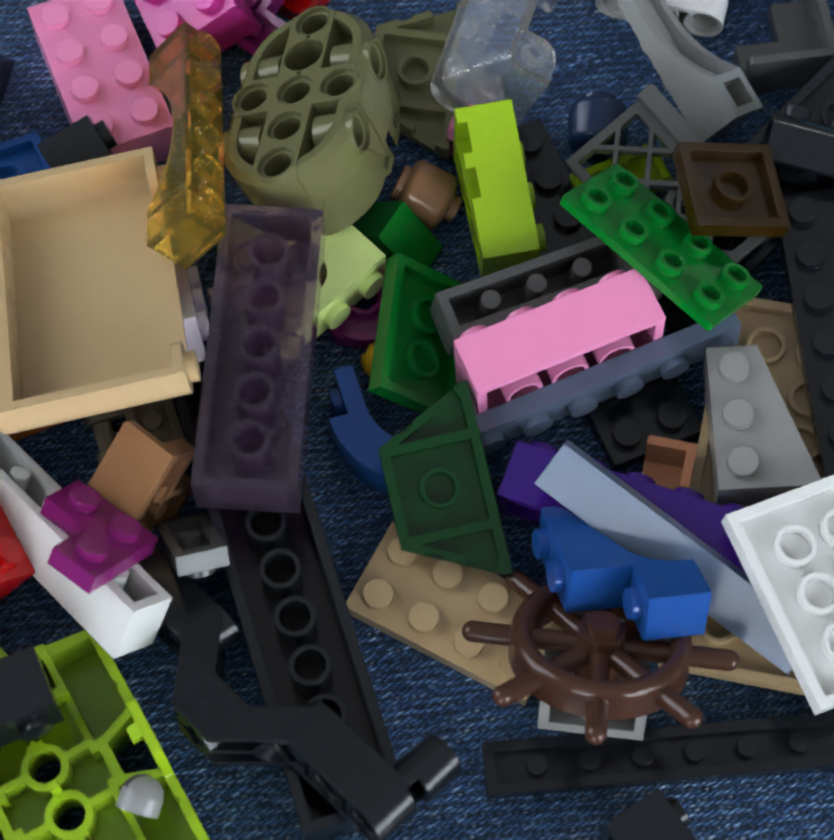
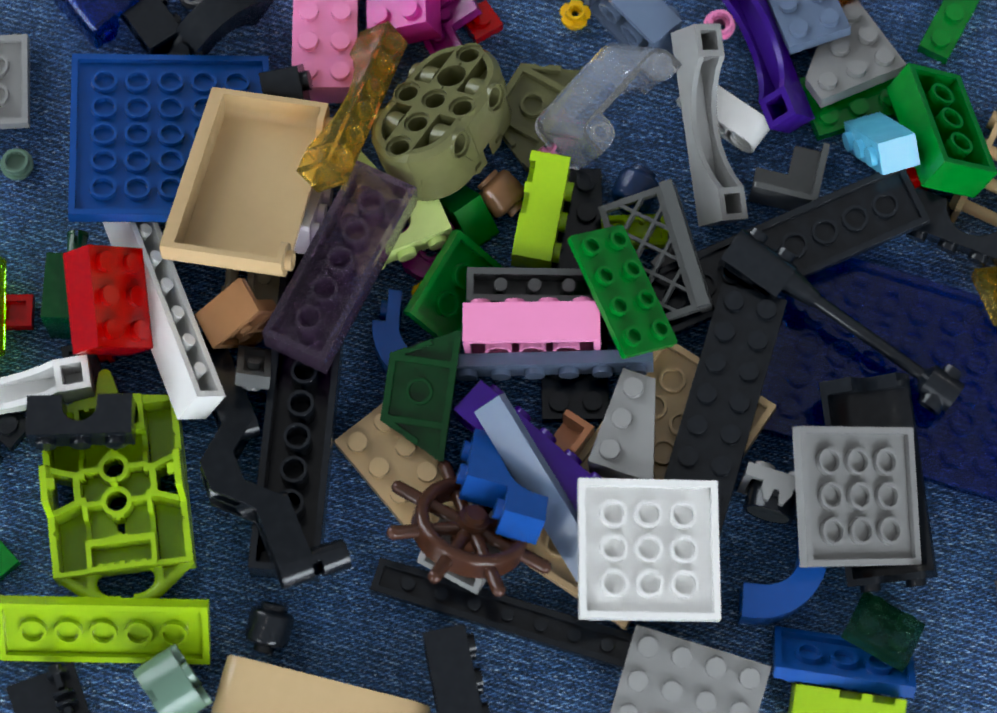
camera: 20 degrees right, 5 degrees up
(101, 539) = (198, 343): magenta plate -> none
(141, 796) = (161, 507): light grey hinge -> none
(730, 189) = (683, 271): dark brown plate -> none

